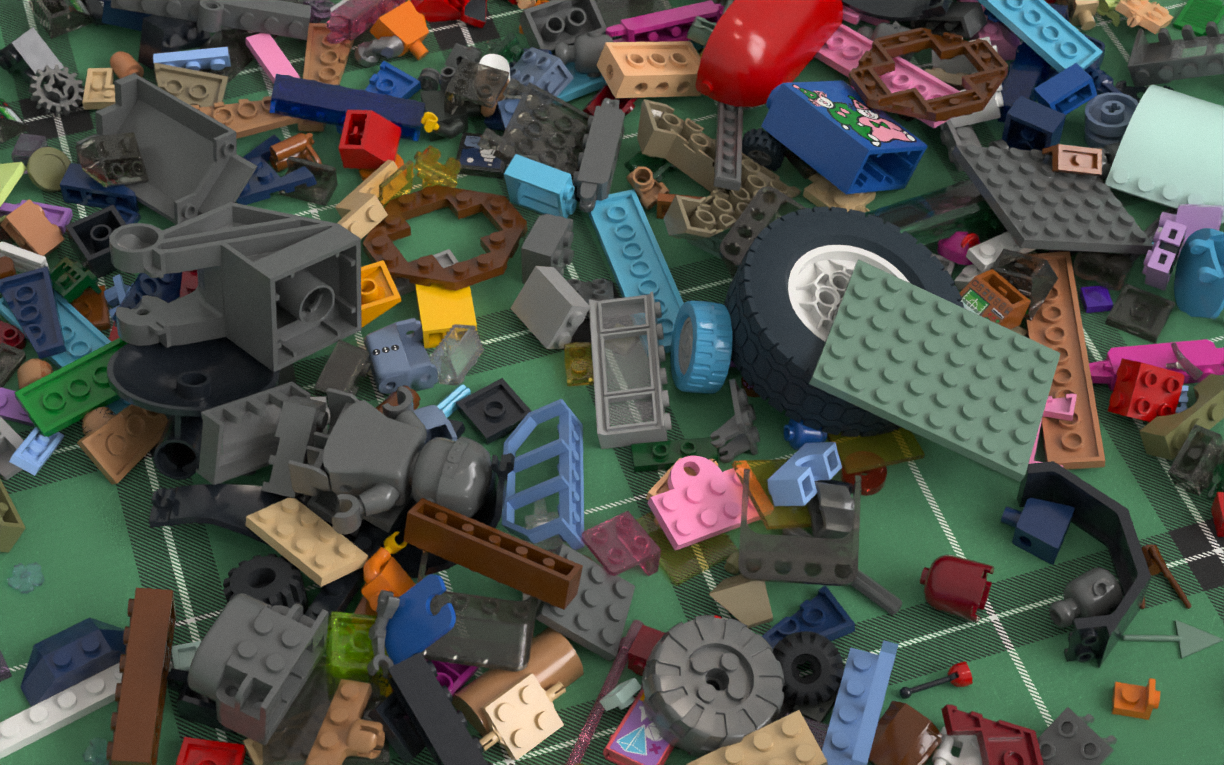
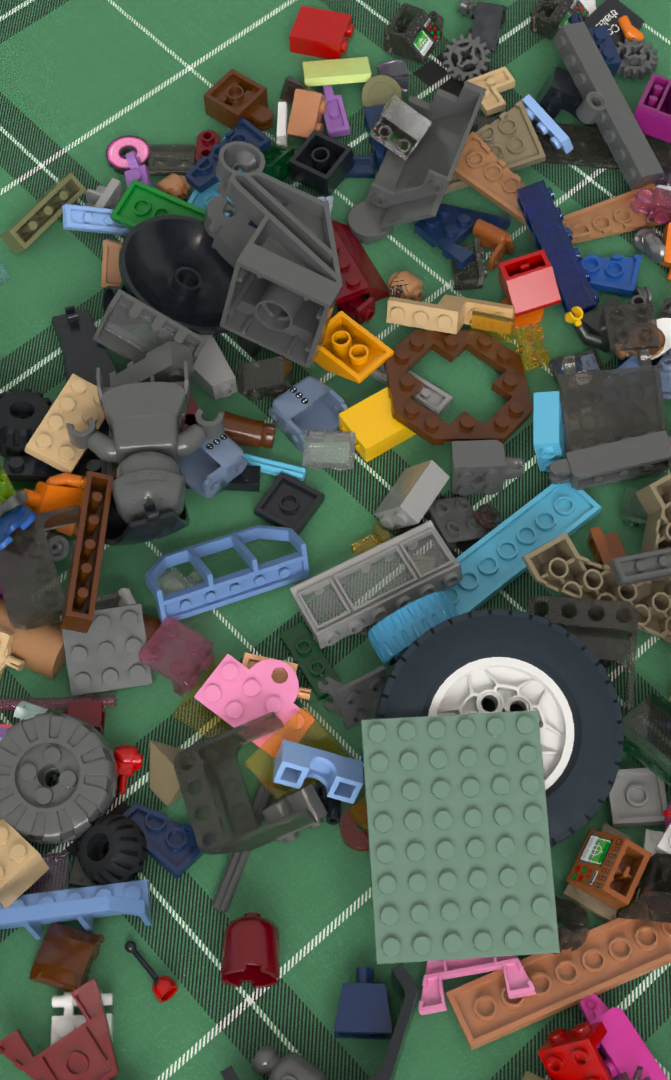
camera: 70 degrees right, 10 degrees up
(124, 65) = (523, 85): nougat brick -> none
(270, 56) = (591, 180): bright pink tile -> none
(595, 271) = (487, 517): none -> clear smoke tile
(649, 188) = (608, 520): medium nougat plate -> none

